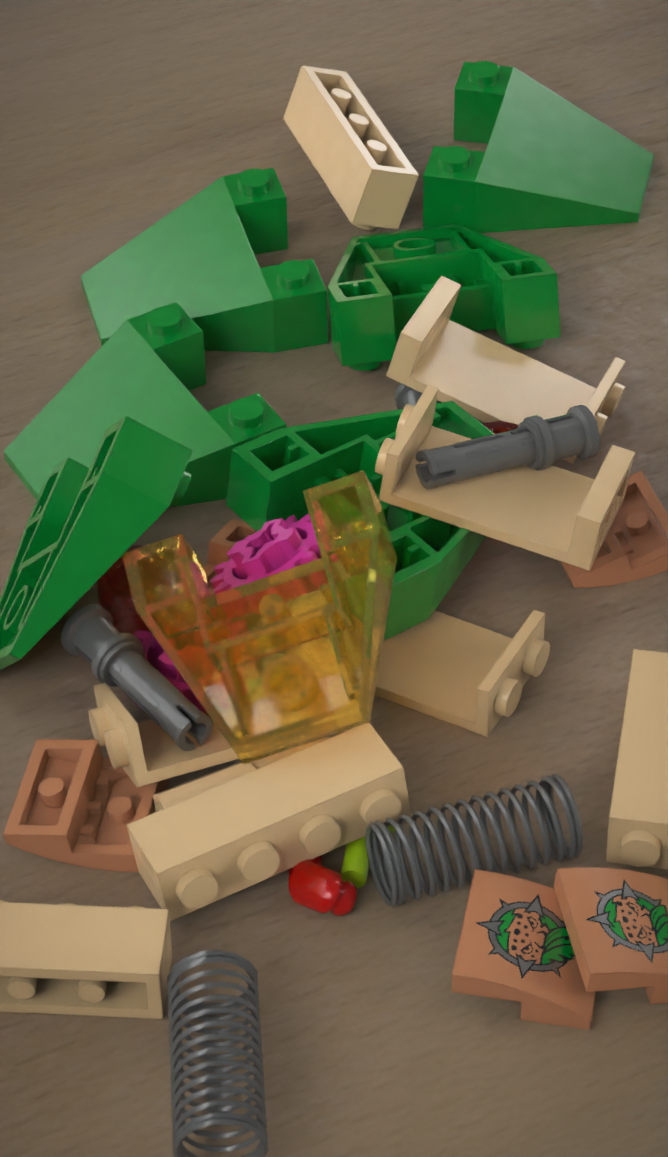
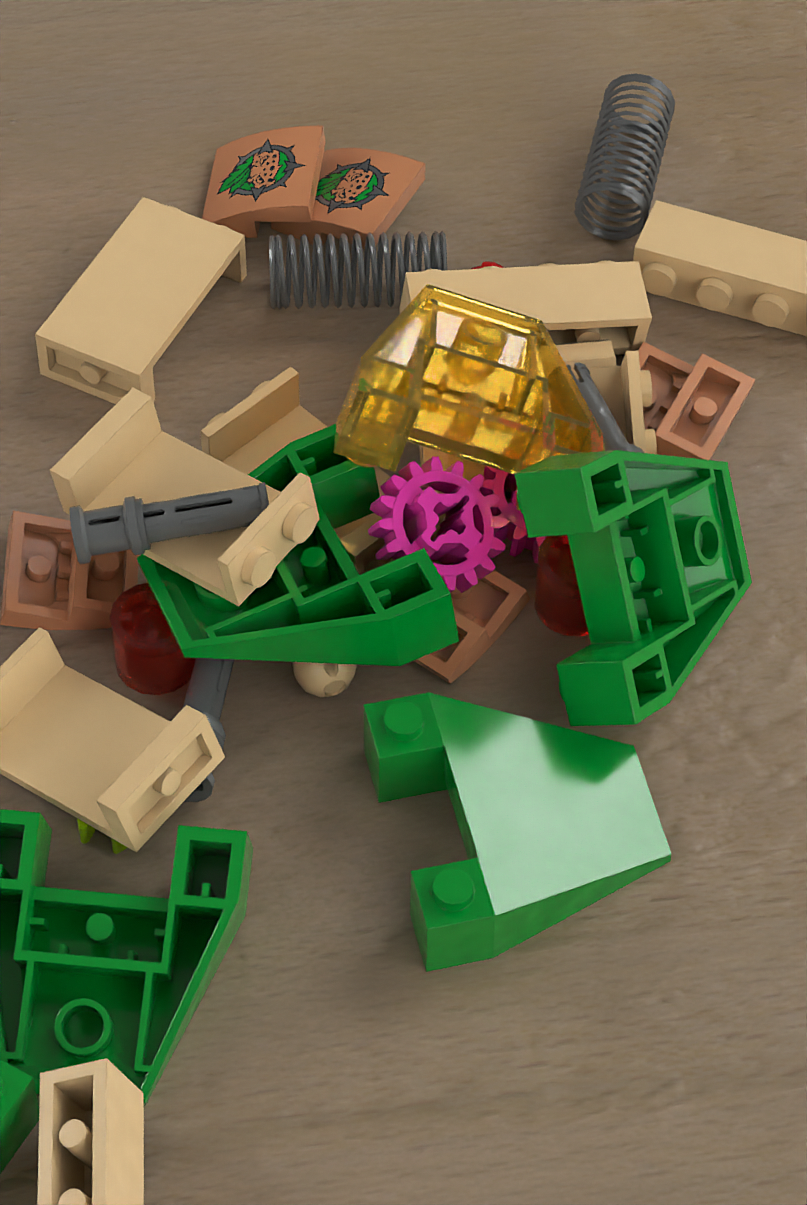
camera: 165 degrees left, 10 degrees up
(209, 267) = (392, 1061): green wedge -> none

